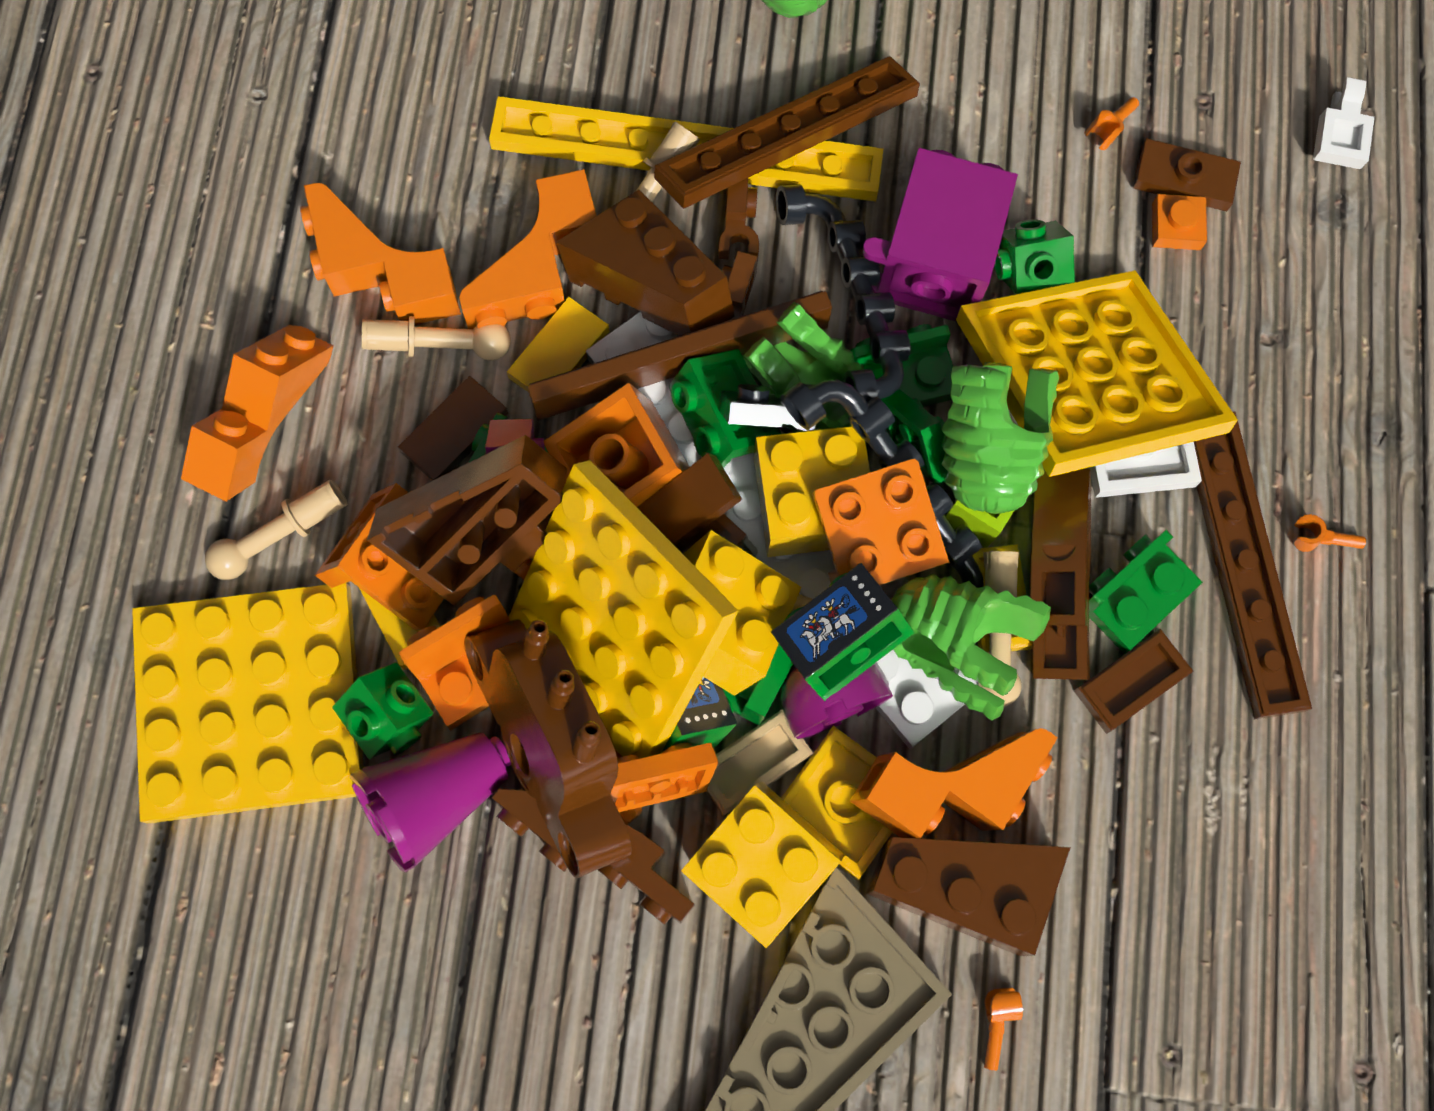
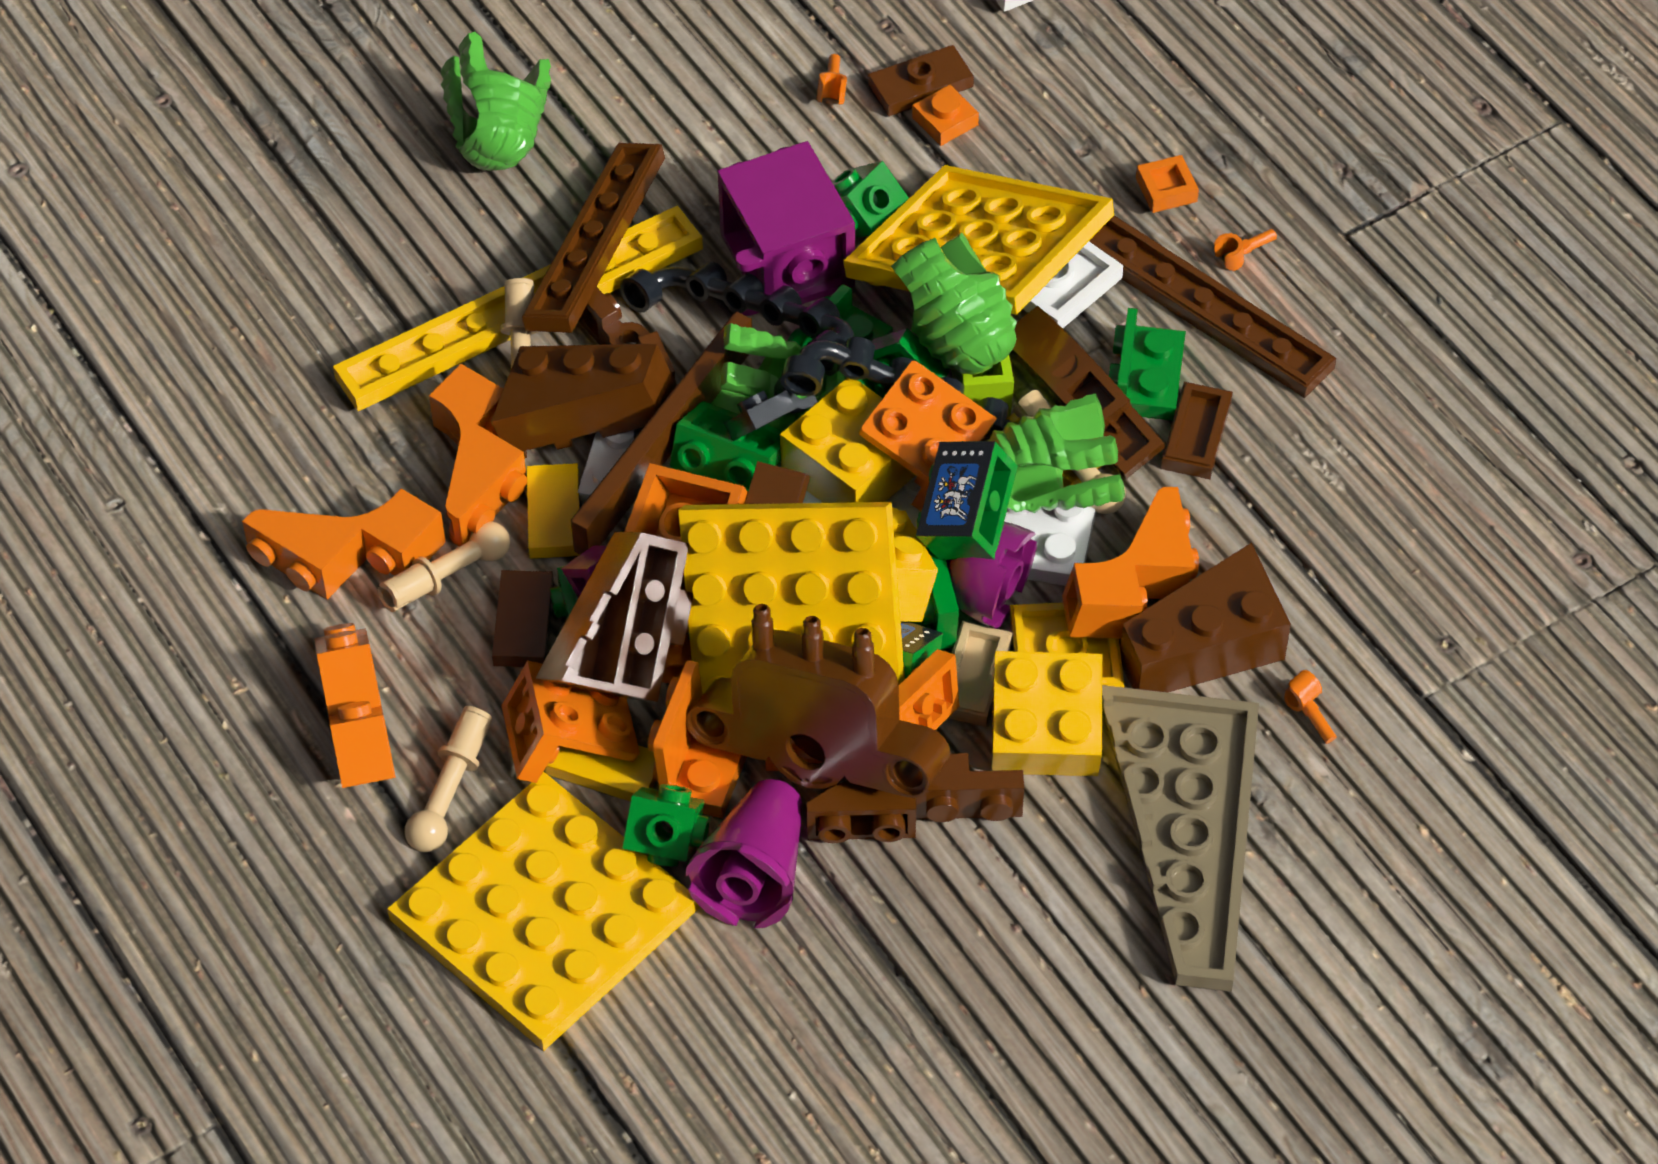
camera: 35 degrees left, 20 degrees down
(1309, 428) = (1167, 183): none -> orange plate

